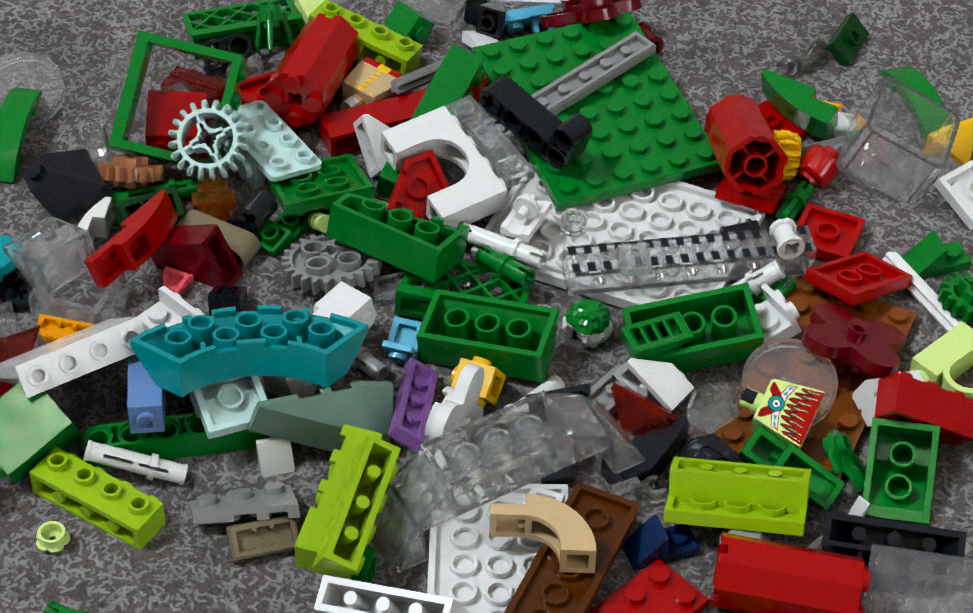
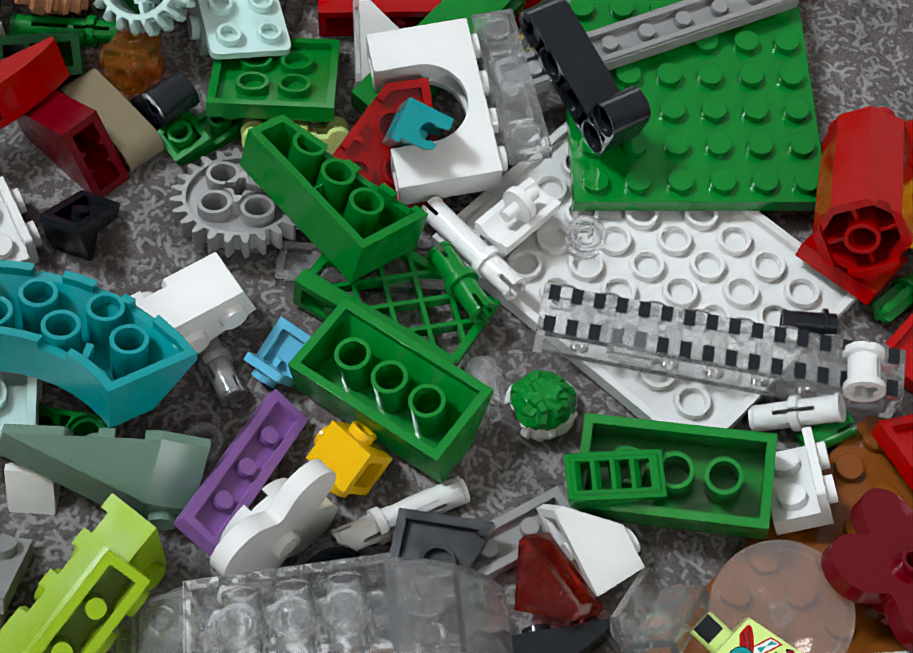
camera: 15 degrees right, 15 degrees up
(176, 280) = (36, 168): coral tile -> none
(439, 171) = (414, 123): none -> teal hinge

